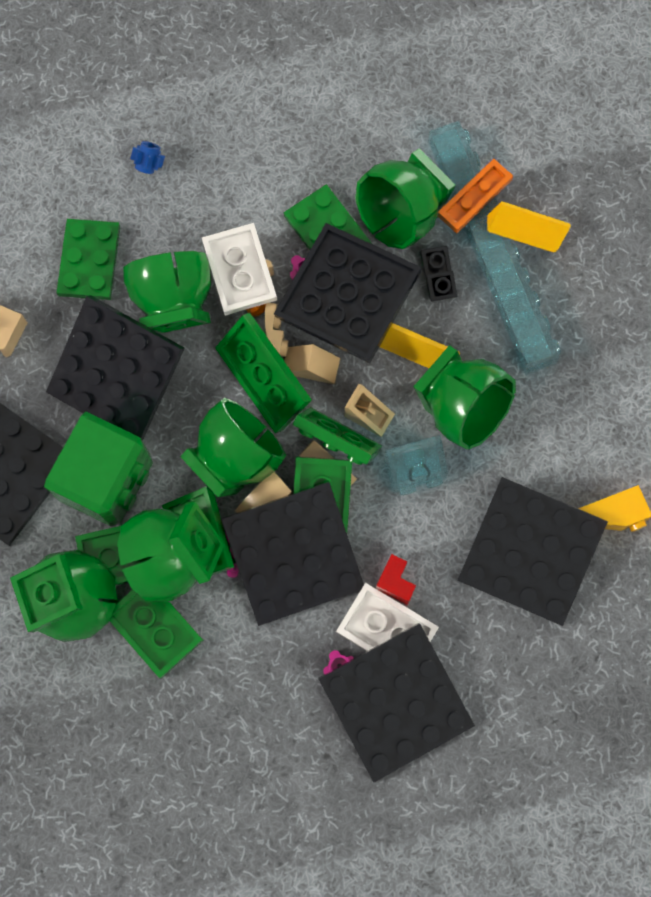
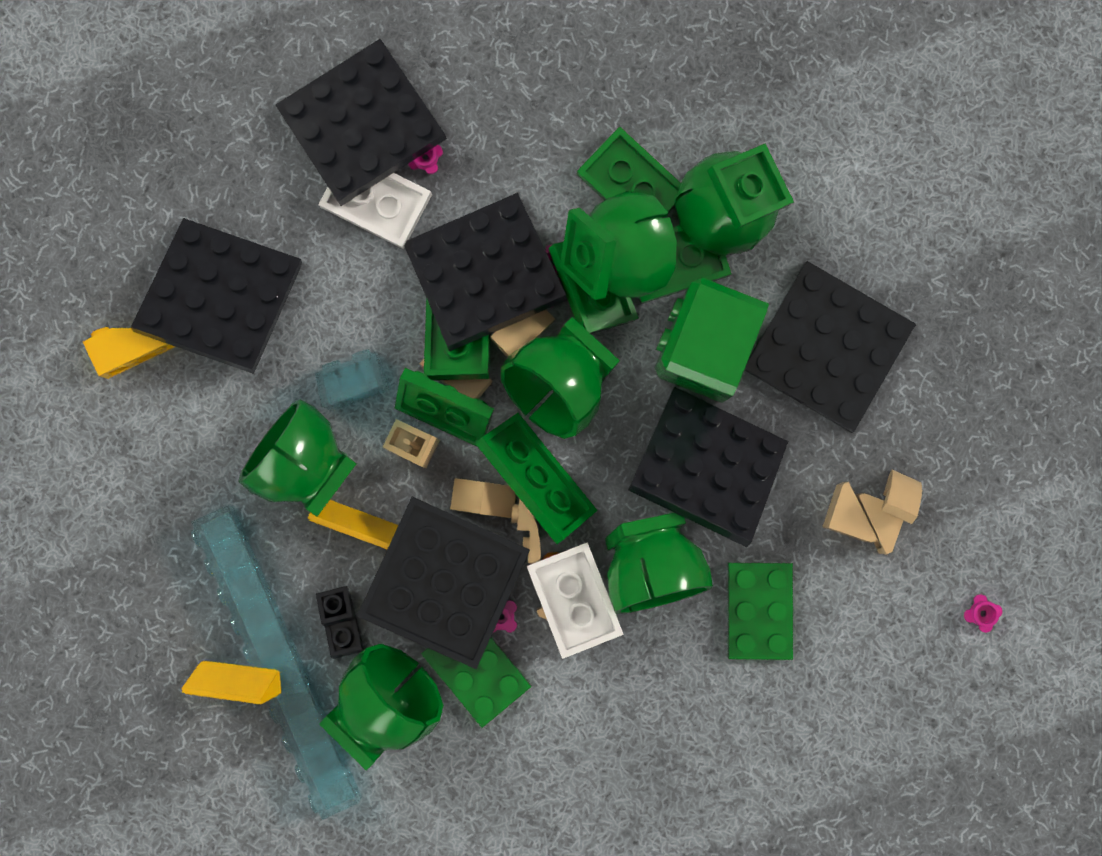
camera: 170 degrees right, 10 degrees up
(147, 157) = (704, 745): blue gear -> none
(392, 583) = (372, 249): red piece -> none
(475, 196) = (295, 716): orange plate -> none

